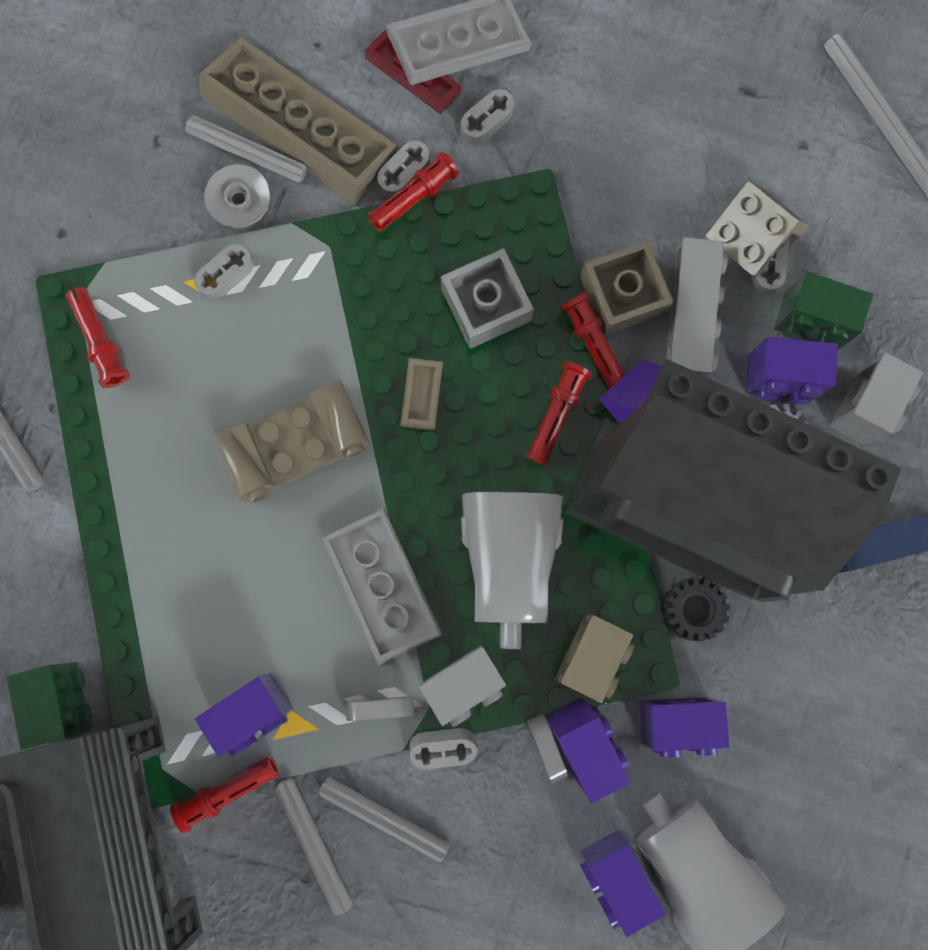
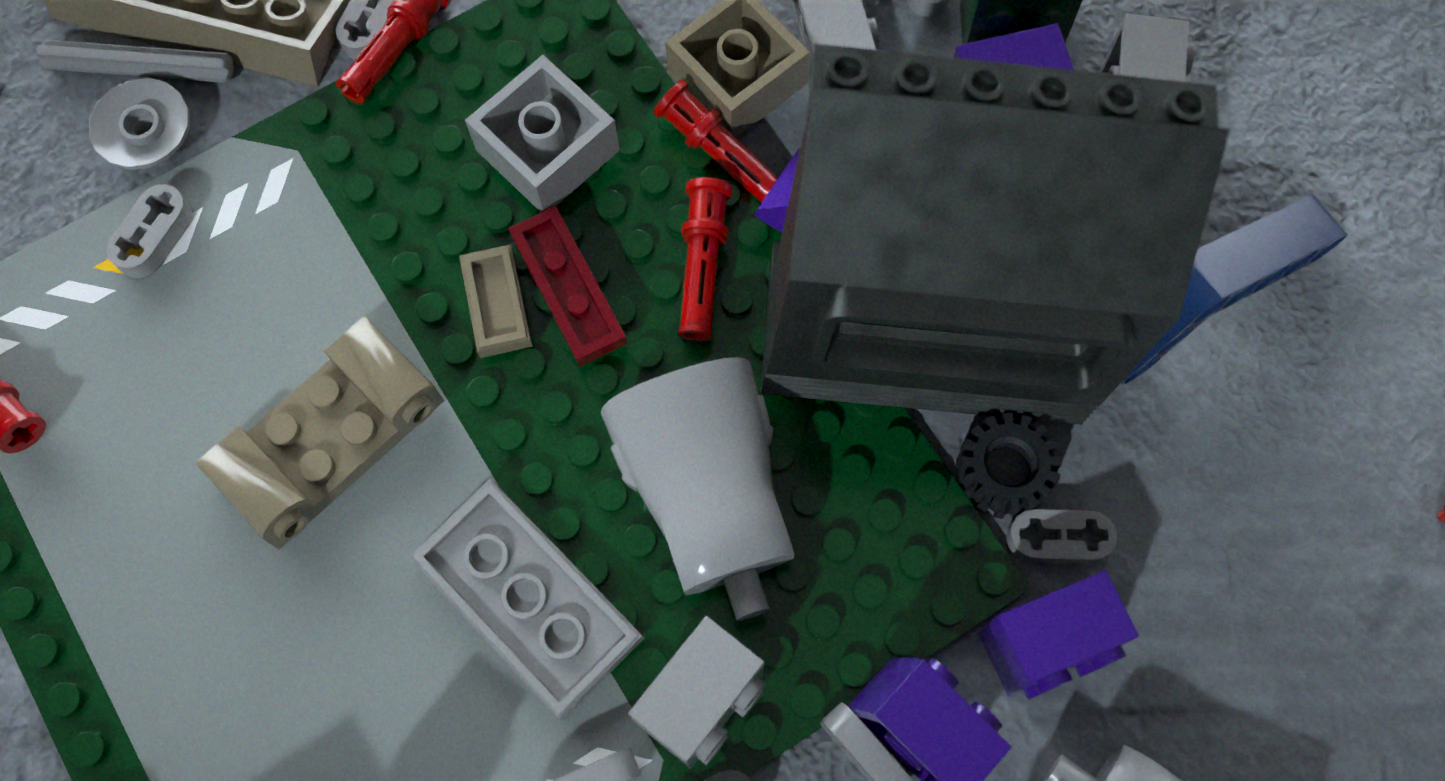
camera: 15 degrees left, 10 degrees down
(468, 401) = (567, 286): none -> dark red plate
(595, 658) = (885, 580): dark tan brick -> none
(713, 655) = (1061, 524): none -> light grey beam

